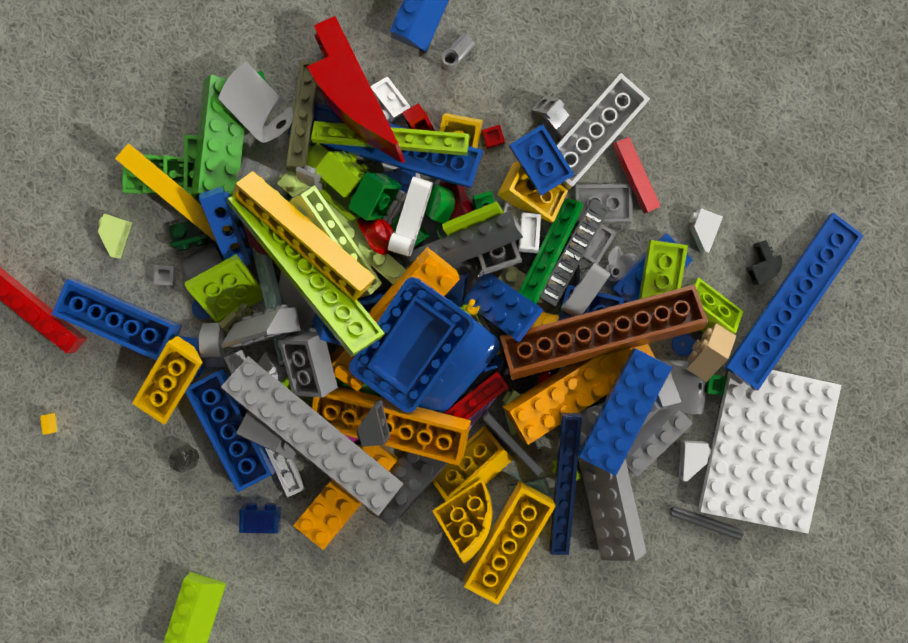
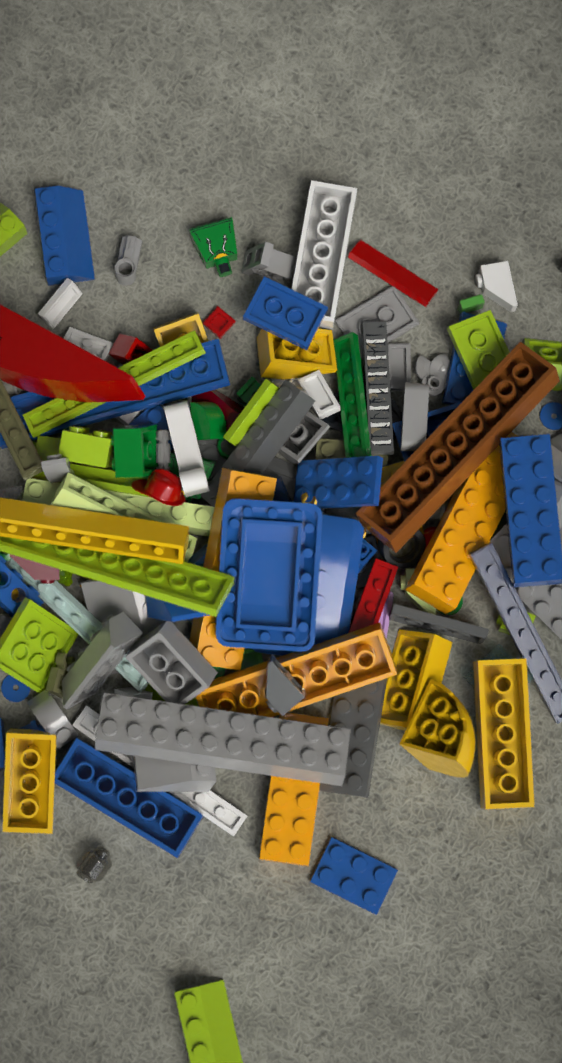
camera: 35 degrees left, 10 degrees down
(260, 518) = (217, 879): clear blue brick -> none
(352, 570) = (354, 876): none -> blue plate
(390, 55) = (60, 303): none -> white tile
(525, 79) = (216, 245): none -> green torso
(676, 231) = (471, 304): none -> bright green tile

